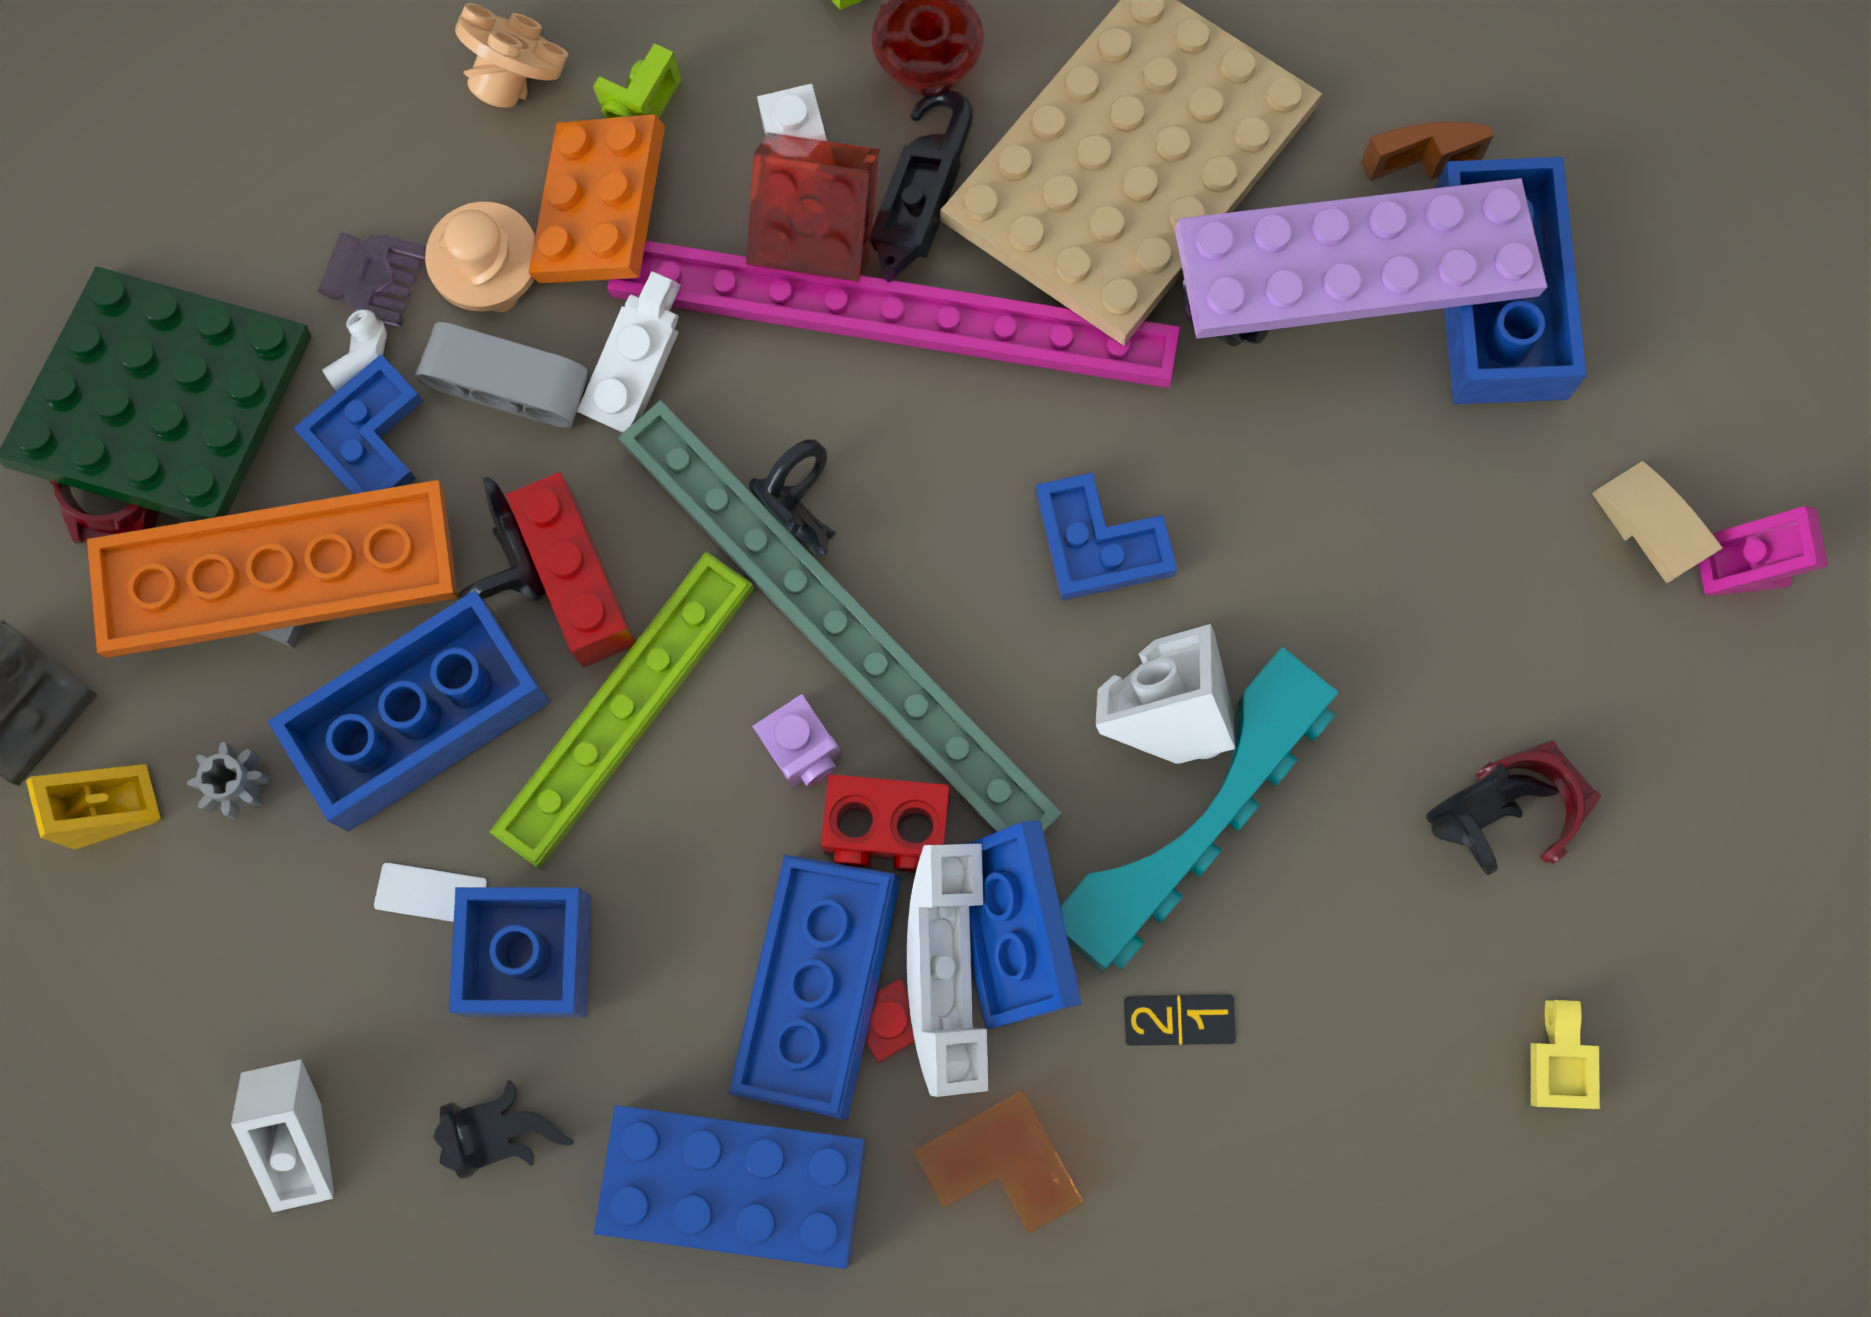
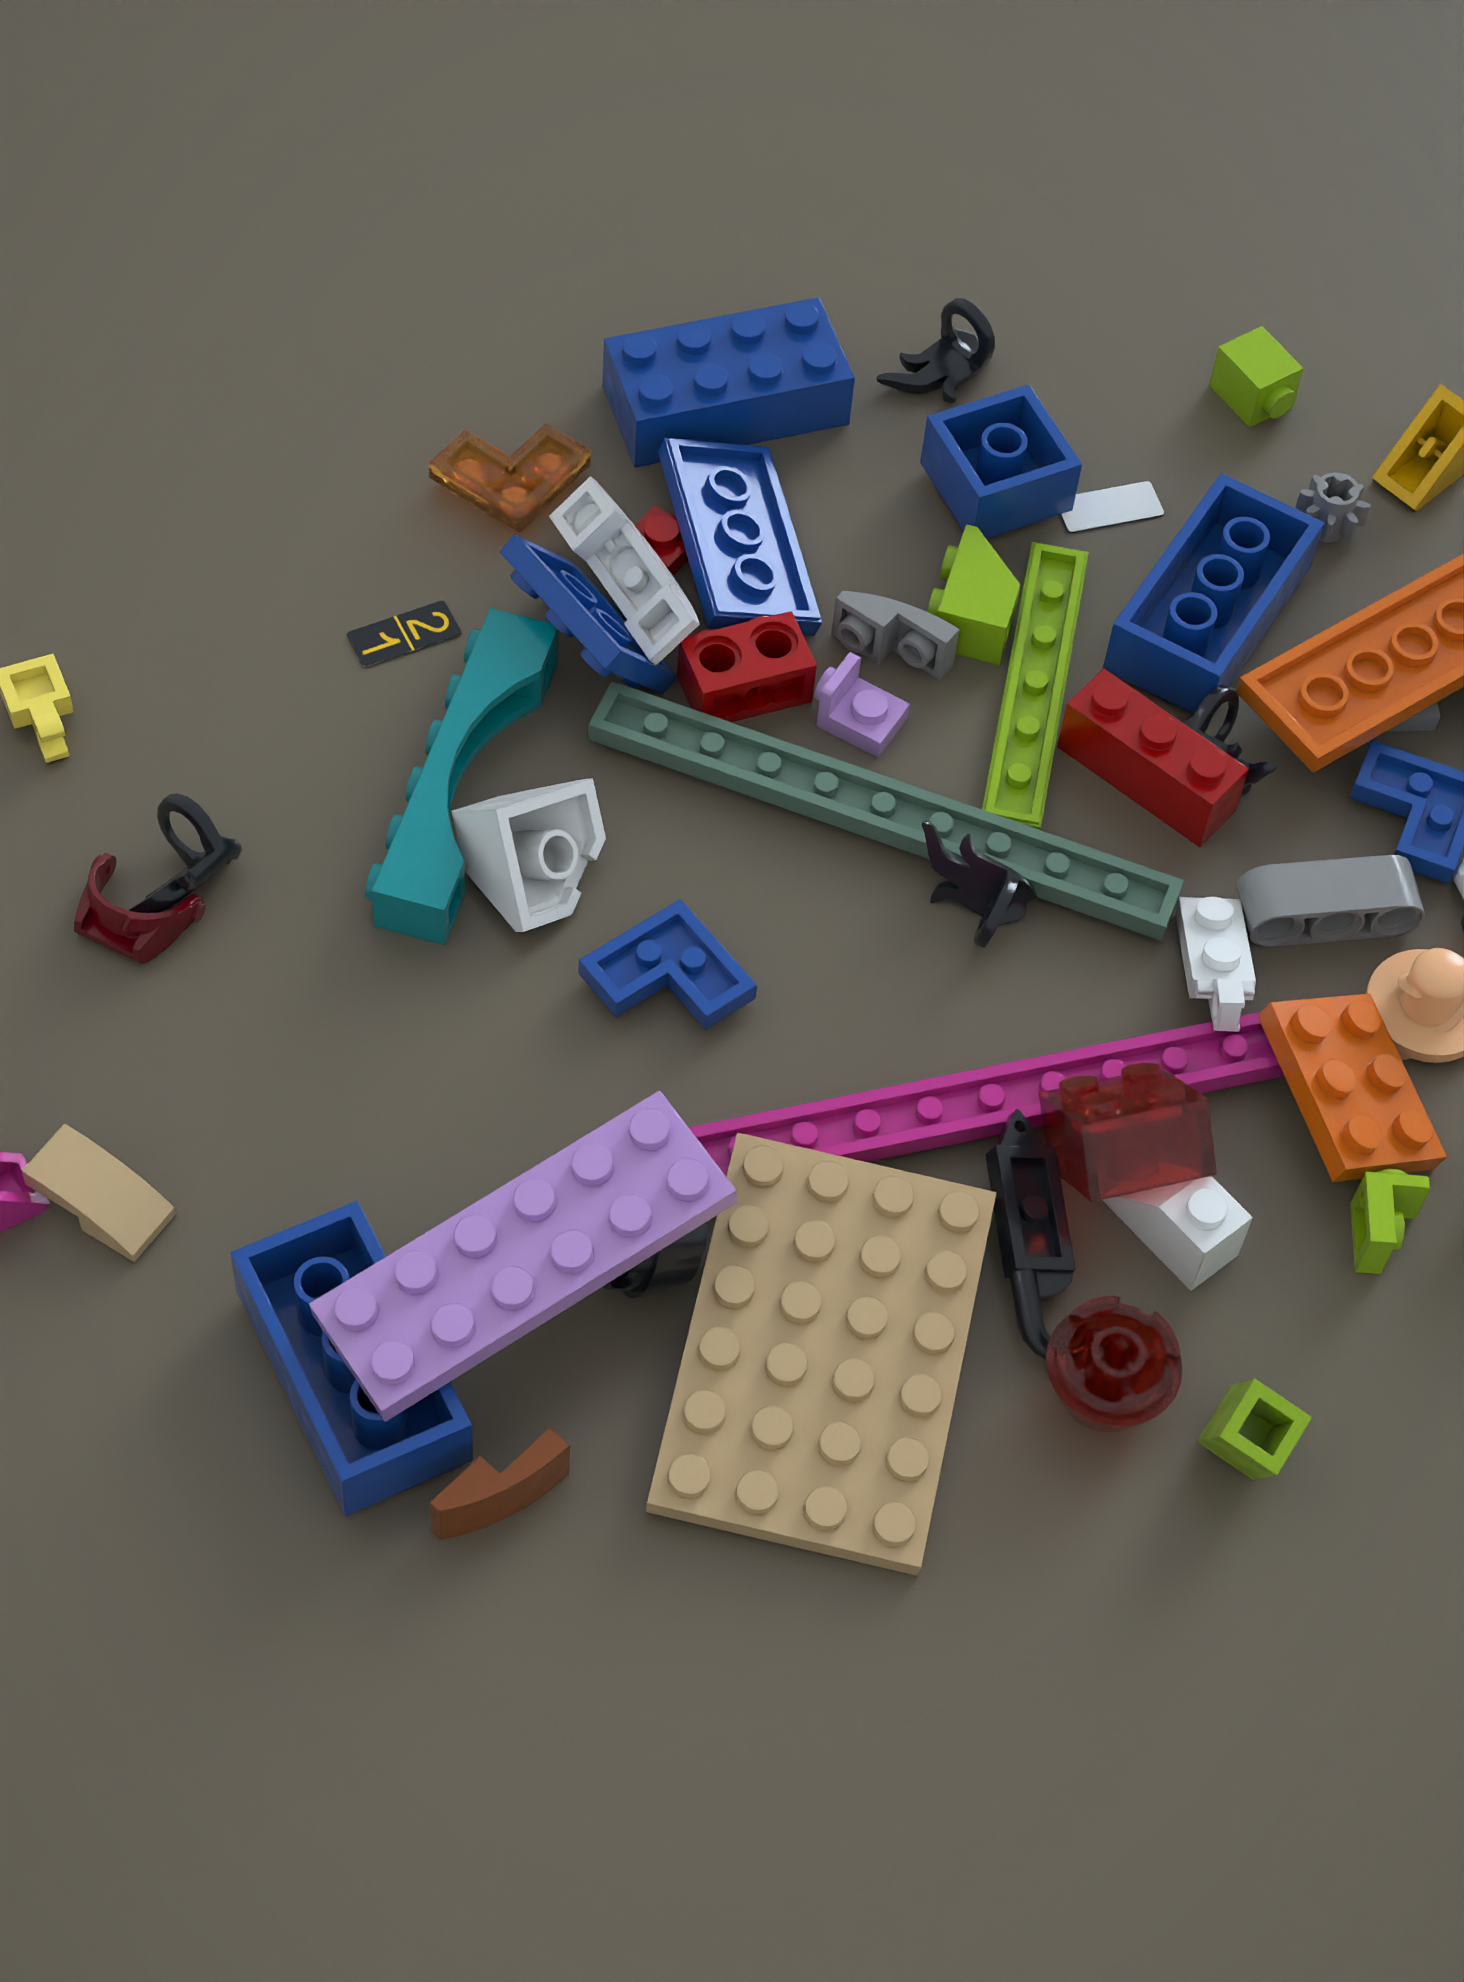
camera: 145 degrees right, 20 degrees down
(196, 970) = (1256, 377): none -> lime brick
(283, 1135) = (1112, 304): white slope -> none
(628, 812) = (977, 597): none -> lime slope
(737, 815) = (883, 625): none -> light grey slope

